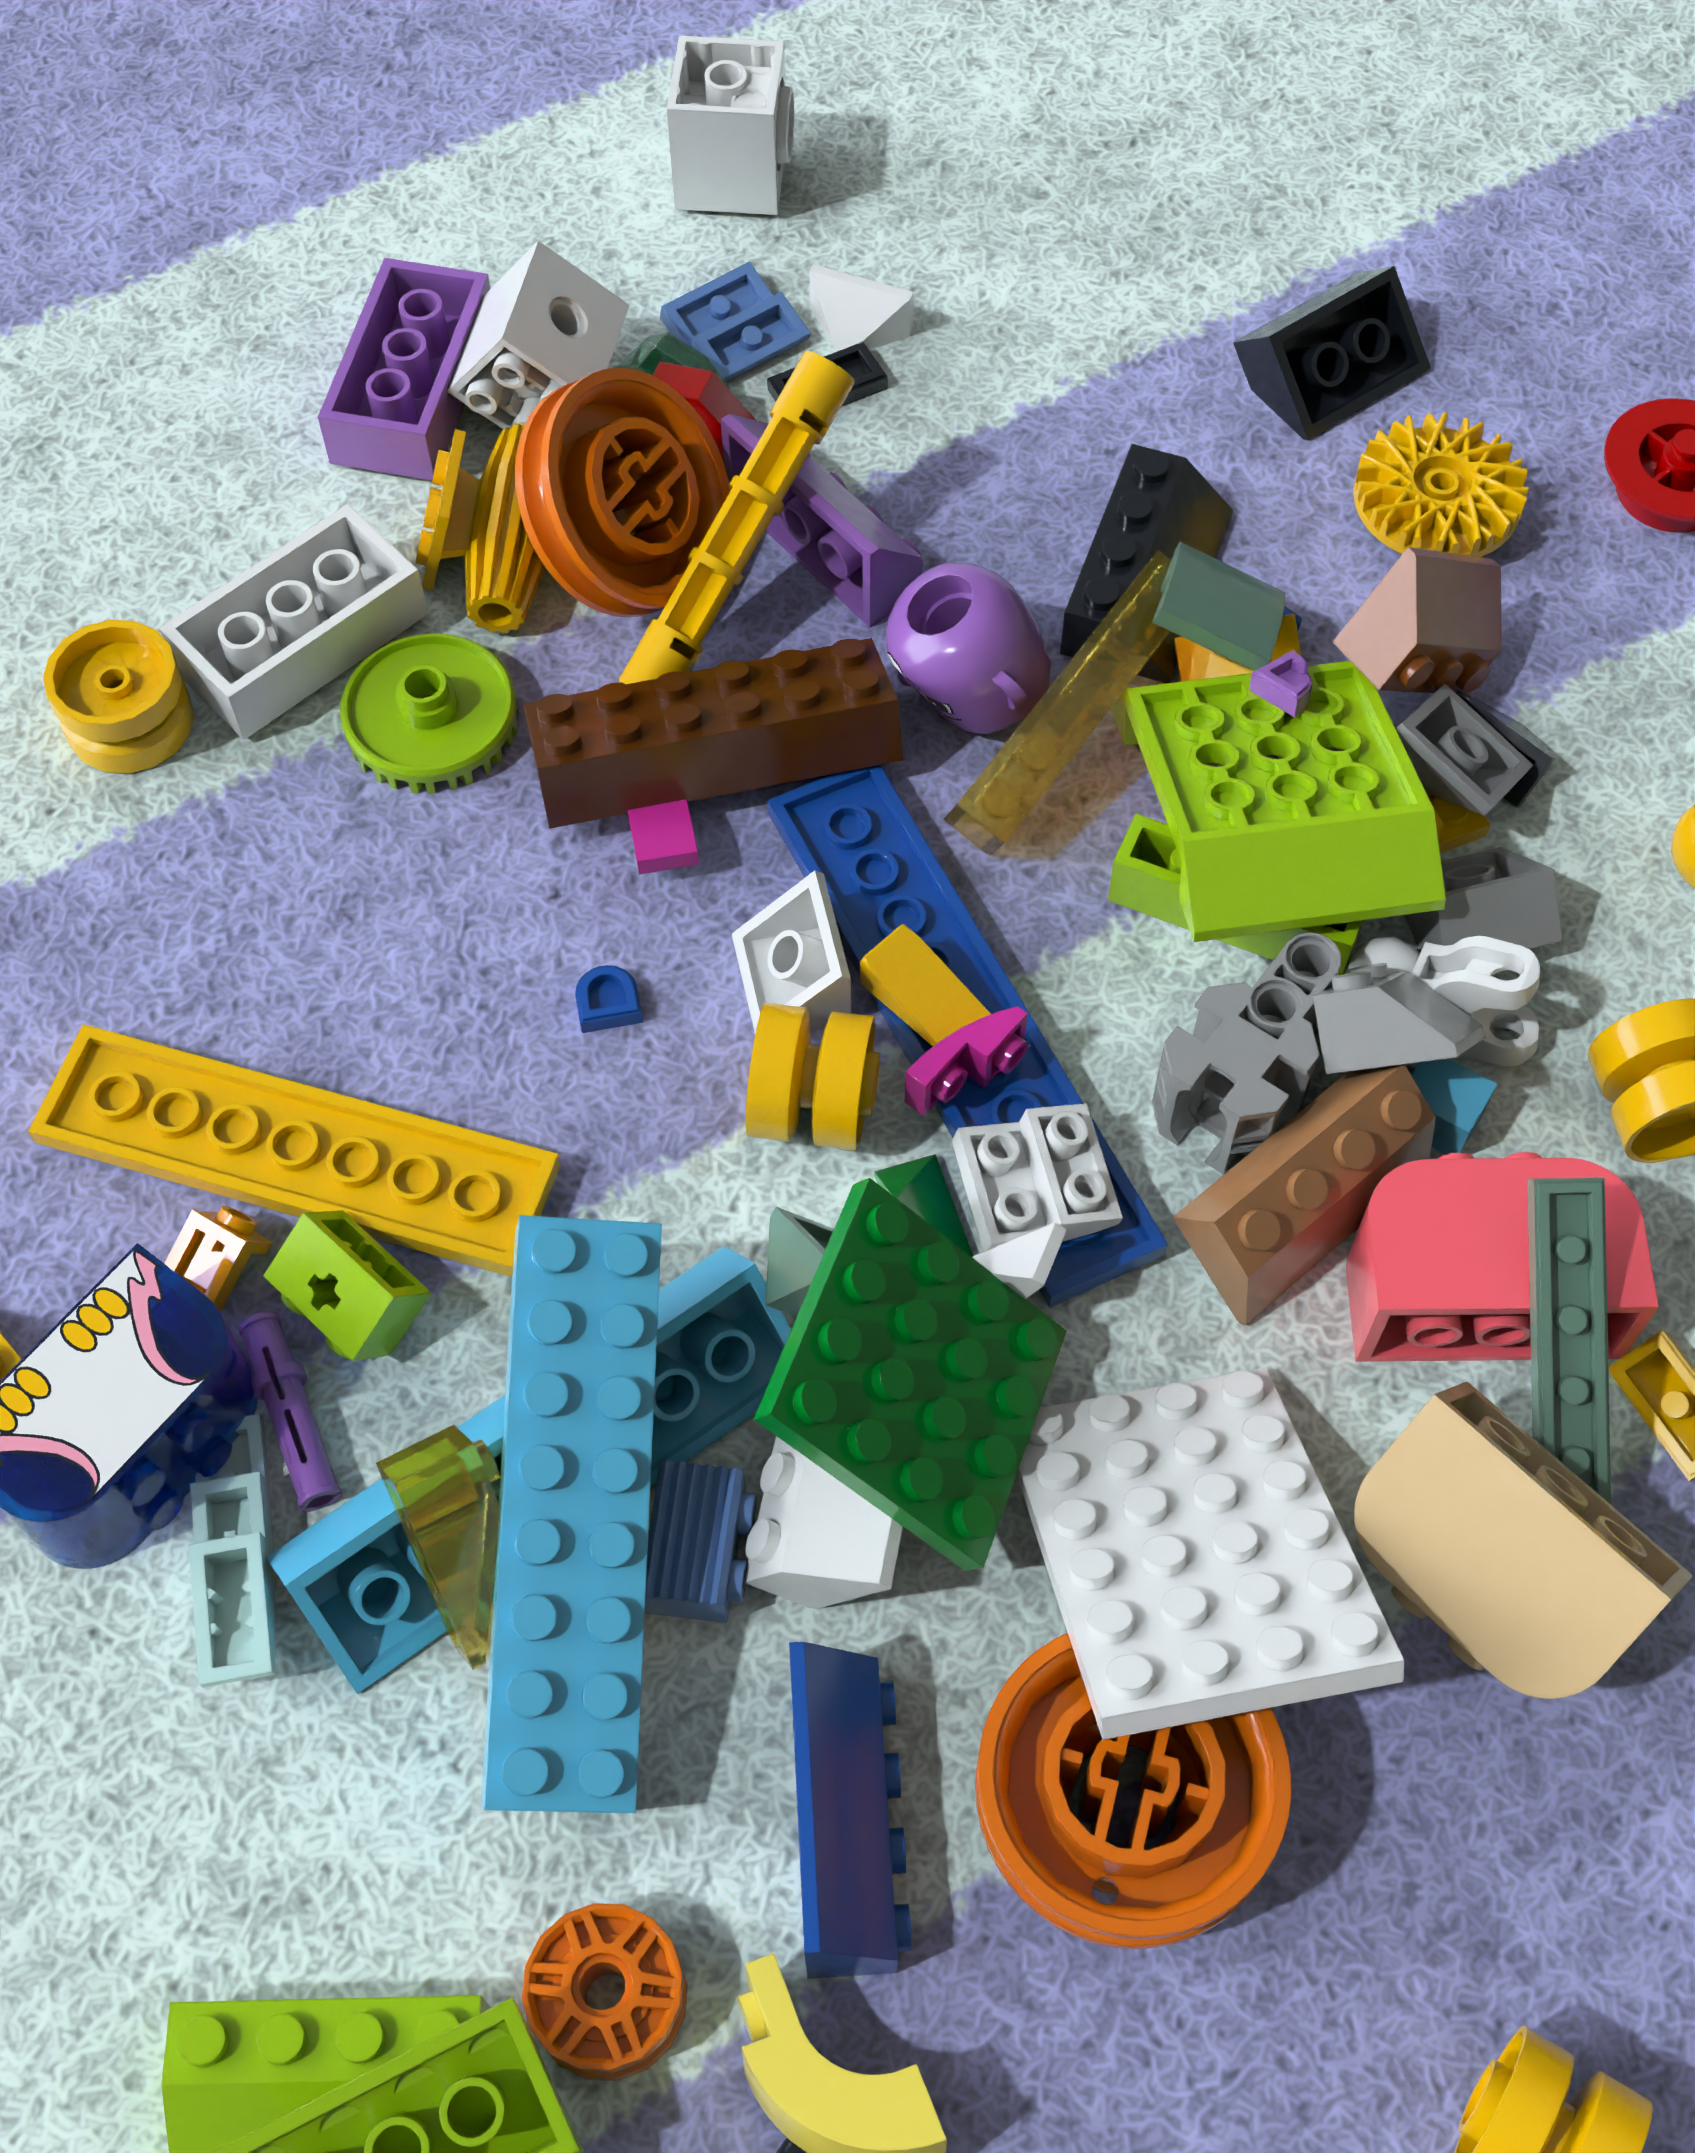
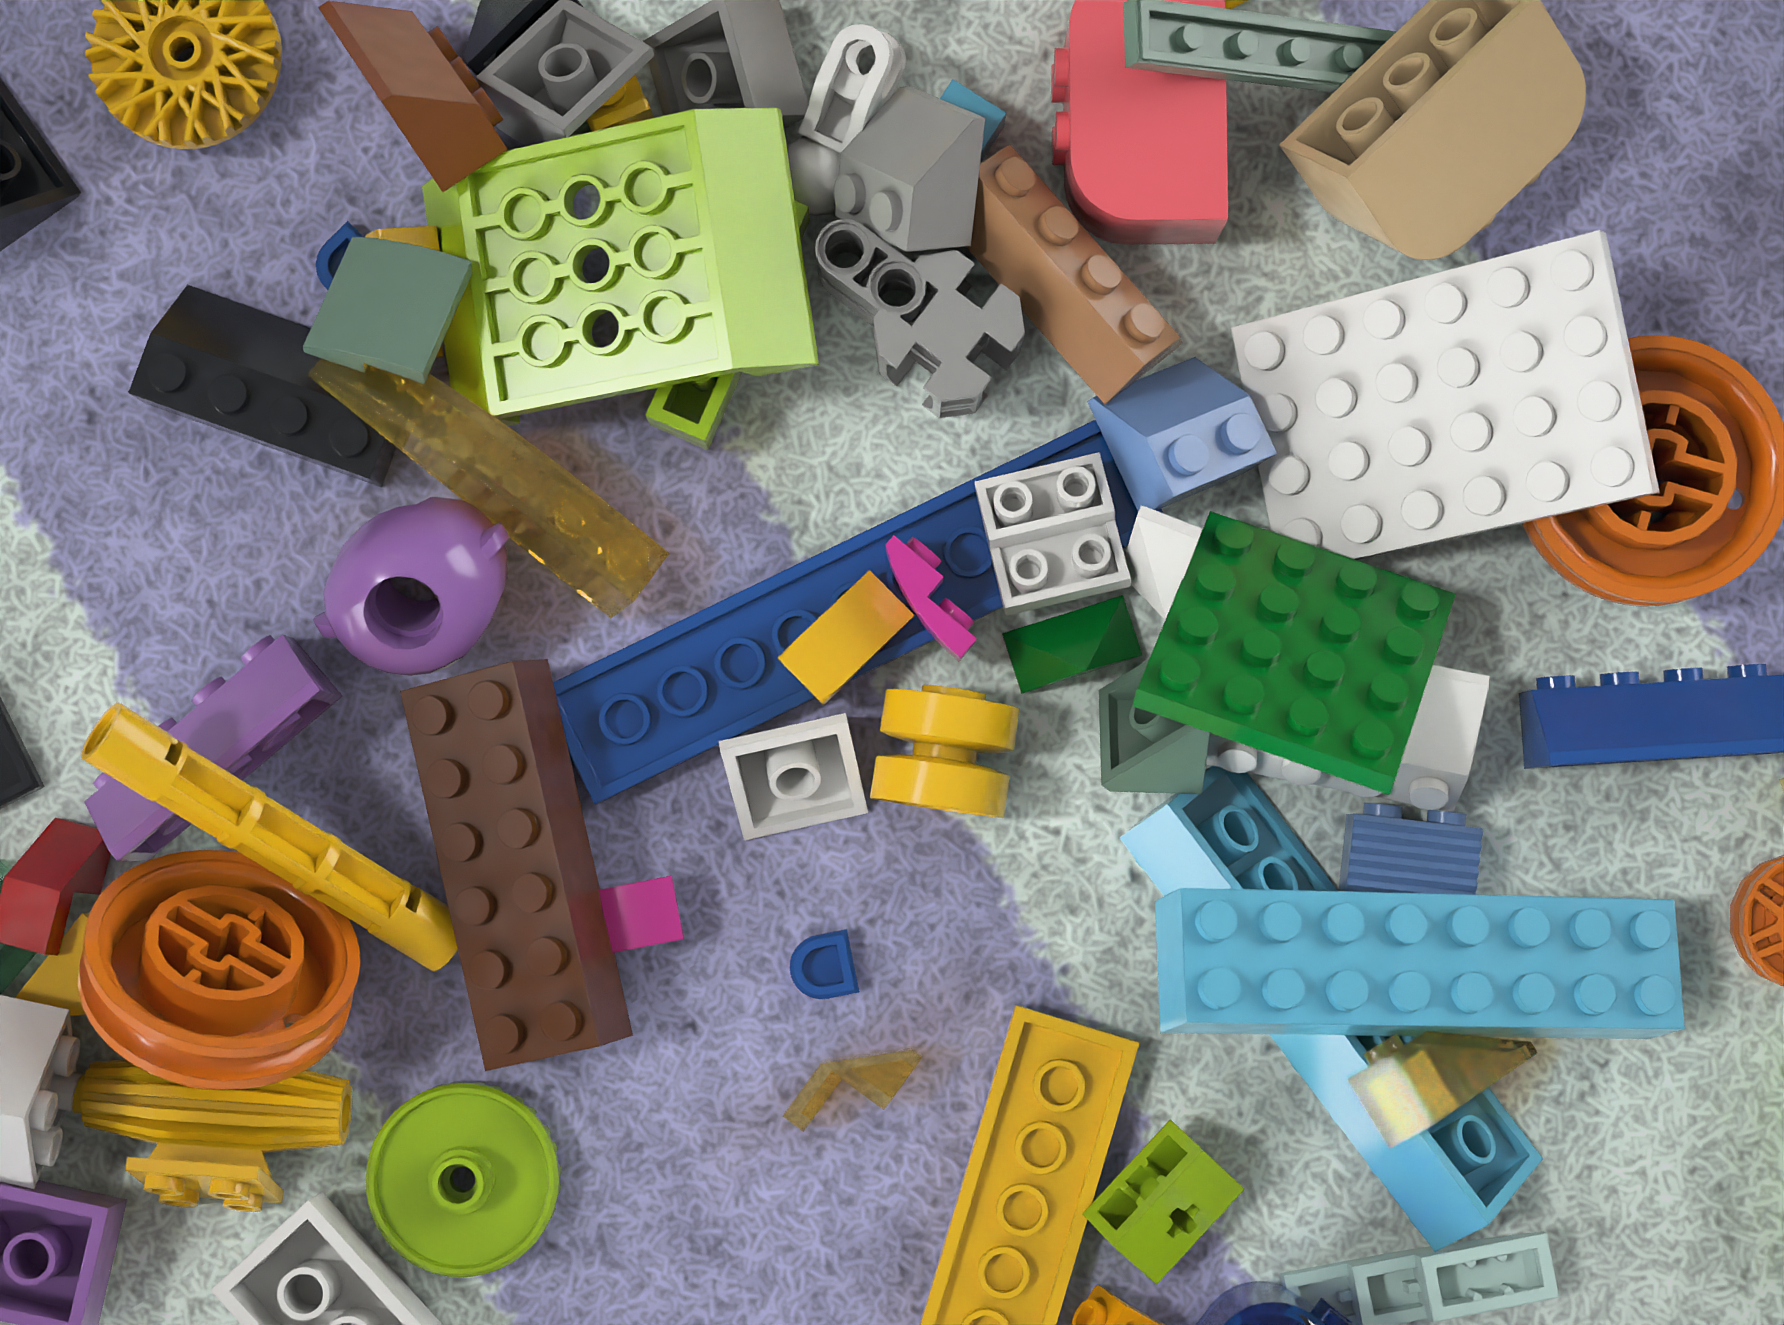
camera: 90 degrees left, 25 degrees up
(267, 1344) = (1257, 1257): medium lavender pin -> none
(494, 1027) = (873, 1074): none -> clear yellow slope
(1145, 1304) = (1181, 433): none -> medium blue slope
(1284, 683) = (497, 246): medium lavender tile -> none

